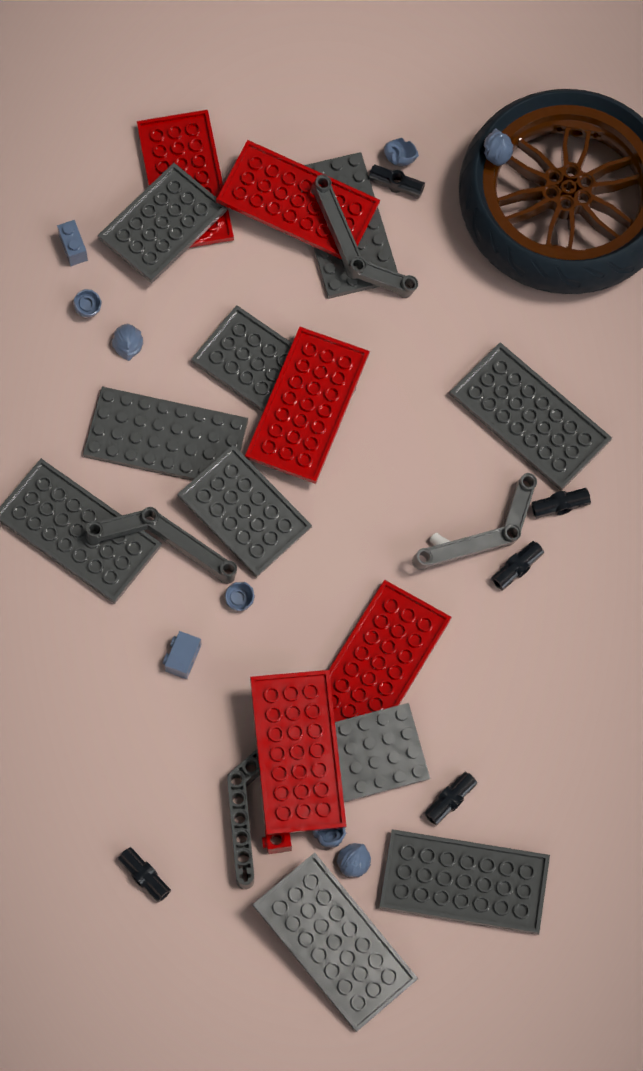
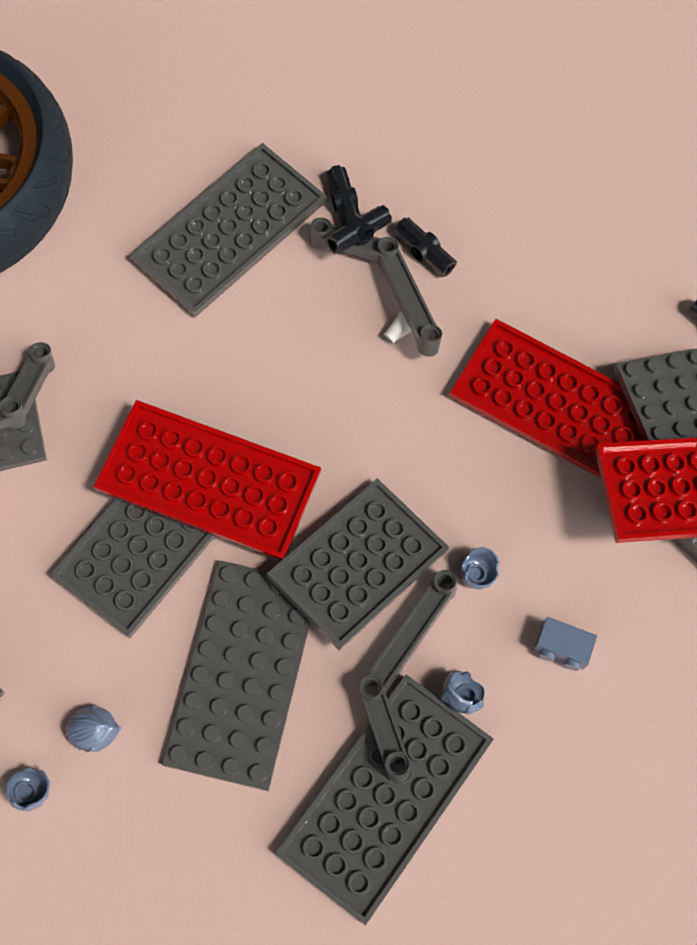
camera: 90 degrees left, 0 degrees up
(147, 580) = (463, 693): none -> sand blue hair
(524, 508) = (358, 229): none -> black piece

